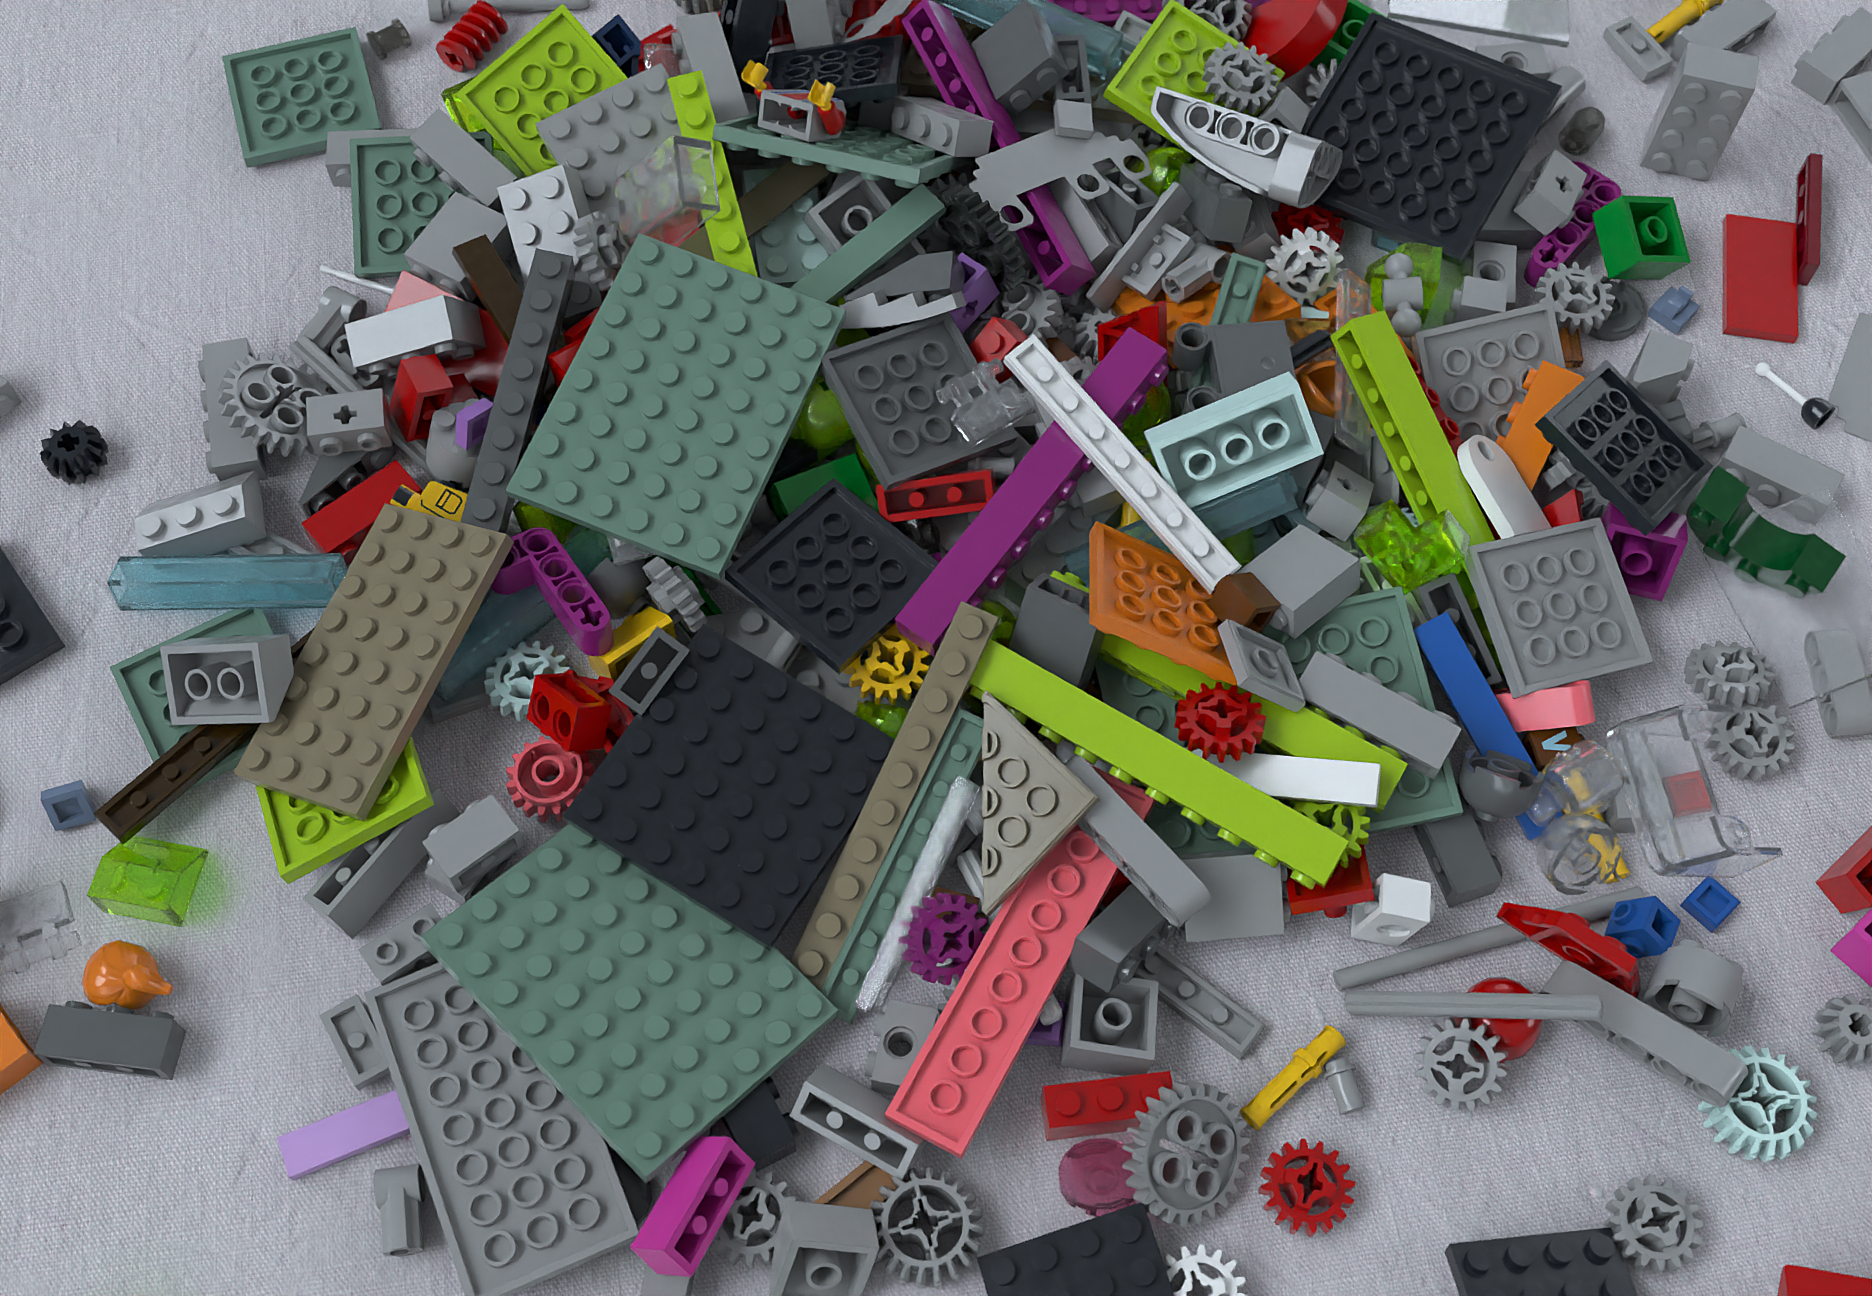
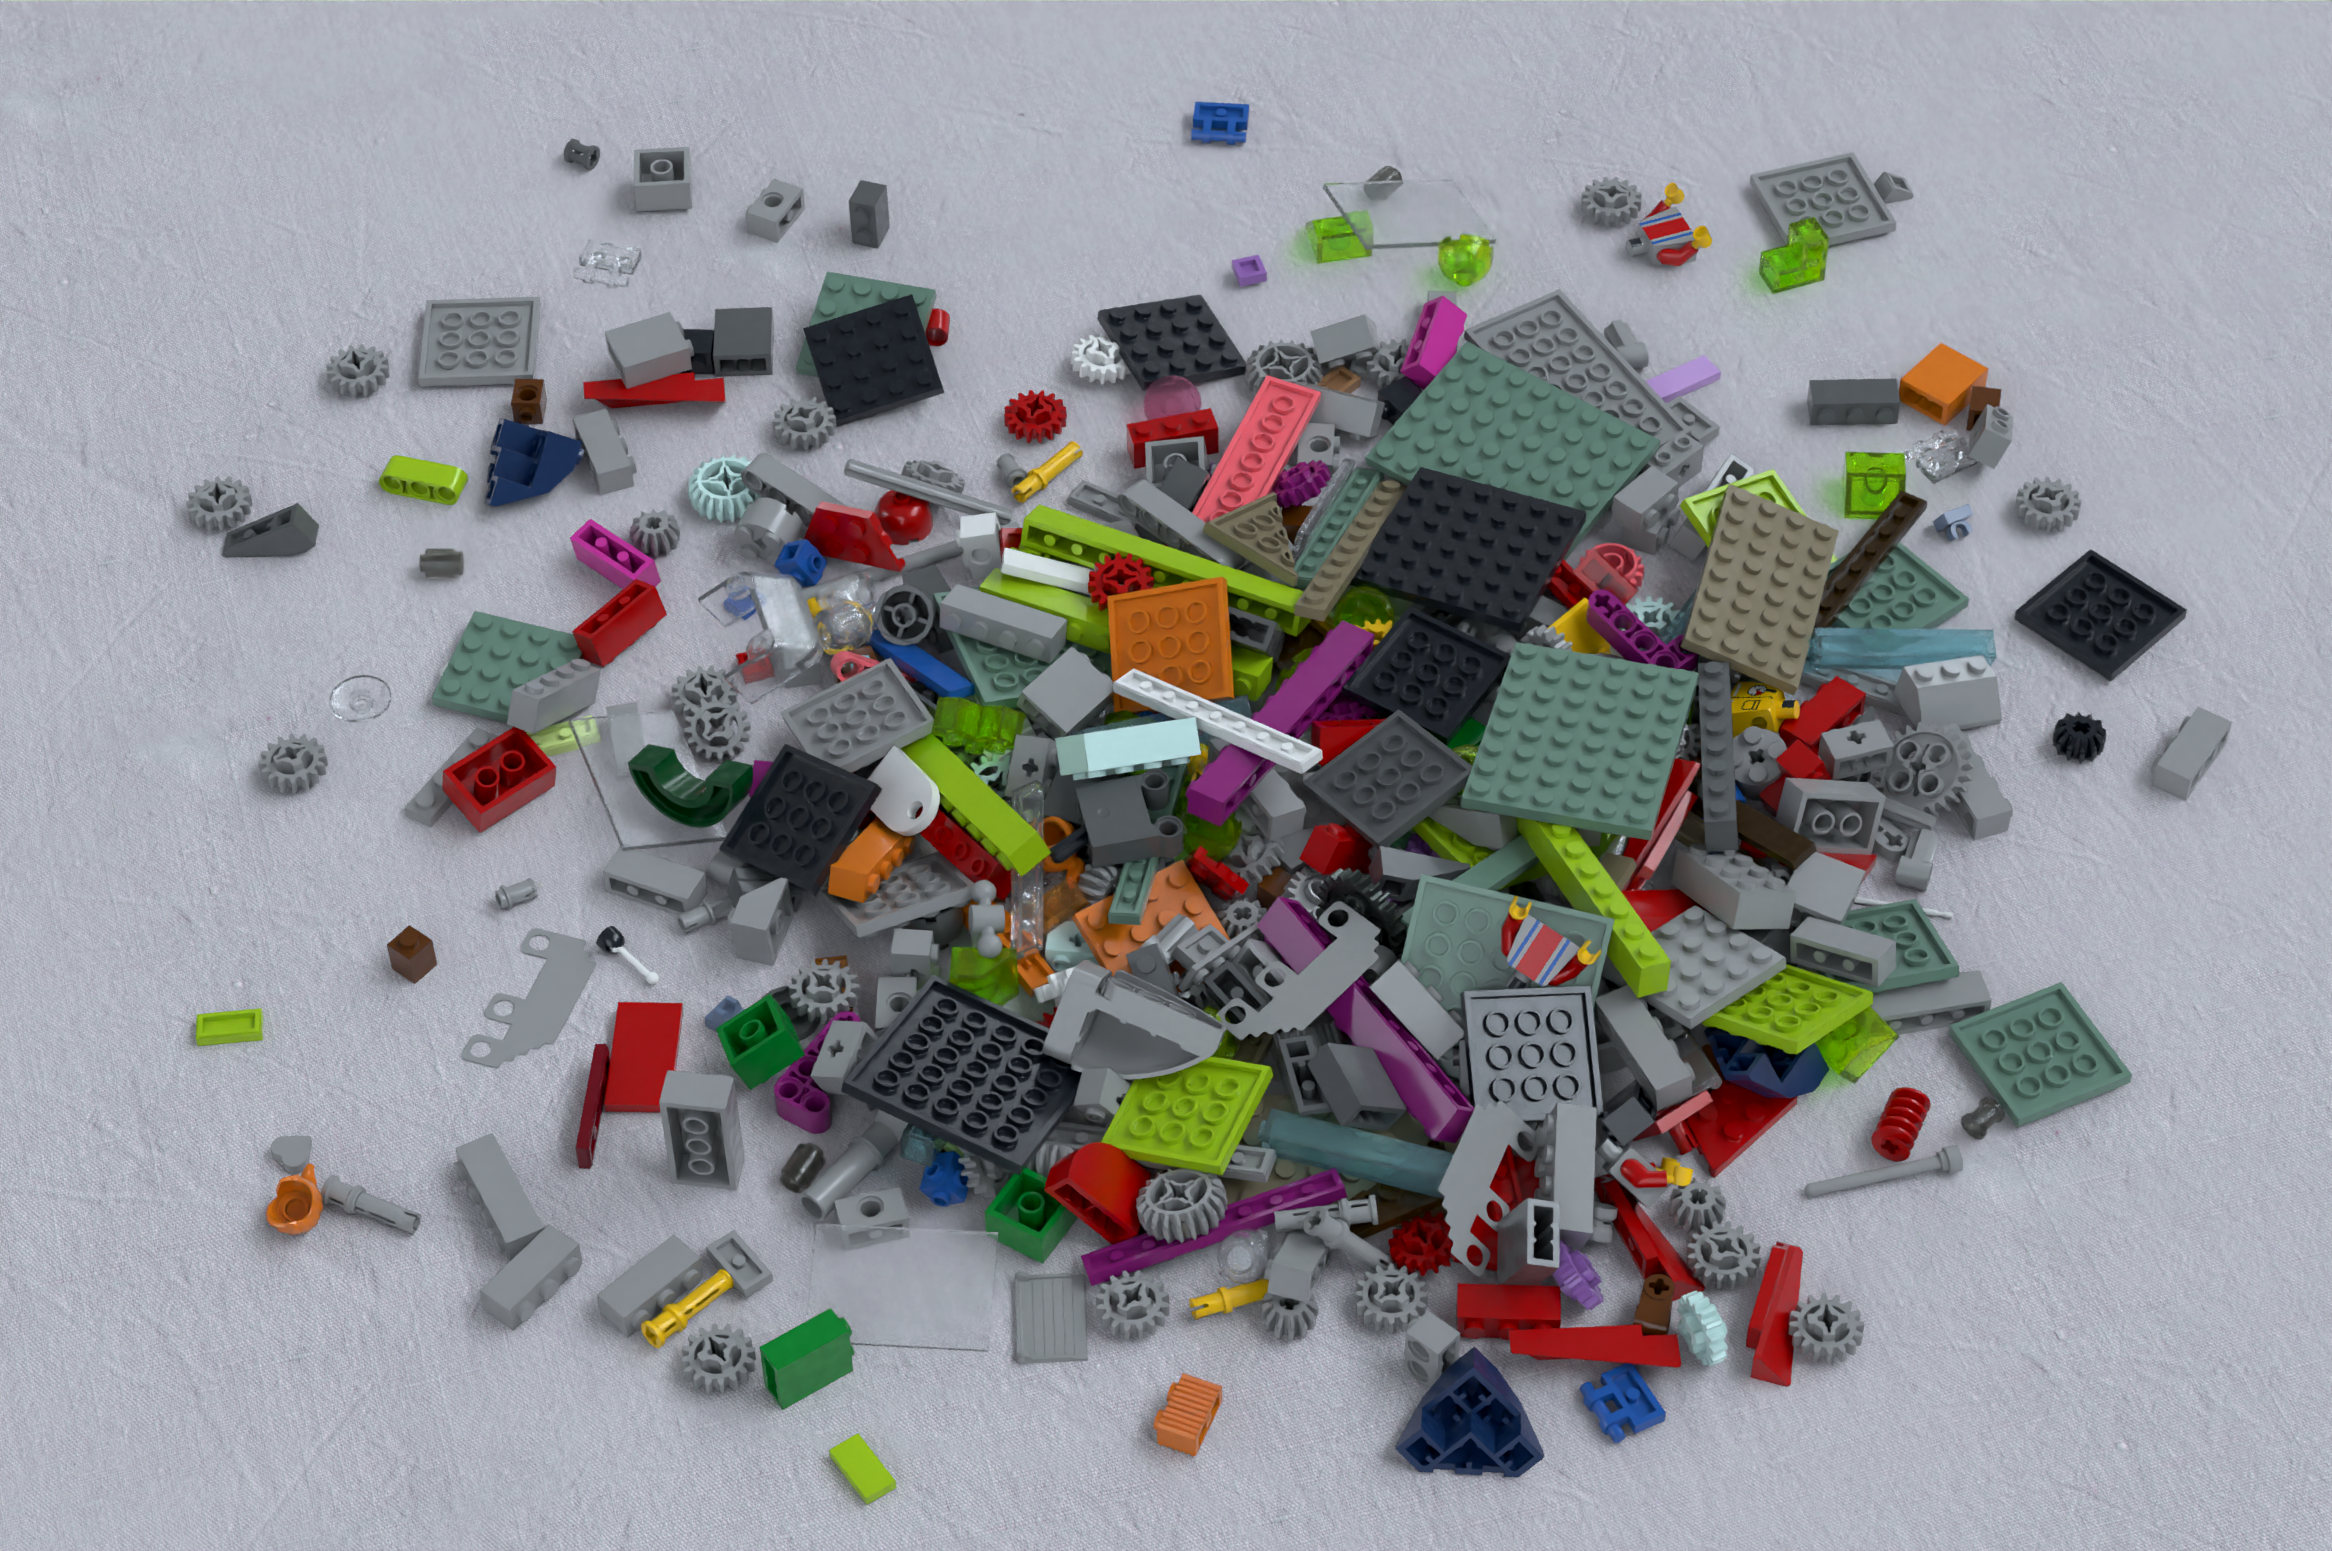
camera: 175 degrees right, 15 degrees down
(123, 975) = (1859, 429): orange hair -> none
(227, 678) = (1866, 572): light grey slope -> none
(472, 423) = (1747, 735): medium lavender plate -> none
(600, 248) = (1685, 858): light grey gear -> none
(649, 670) = (1551, 592): dark grey brick -> none
(668, 191) = (1641, 880): clear brick -> none
(876, 311) = (1429, 836): light grey slope -> none
(989, 412) = (1334, 784): clear plate -> none
(1073, 119) = (1296, 1023): light grey tile -> none
(1184, 1186) = (1118, 406): light grey gear -> none
(1240, 78) = (1144, 1101): light grey gear -> none
(1244, 601) = (1108, 657): reddish brown brick -> none
(1261, 665) = (1093, 614): light grey tile -> none

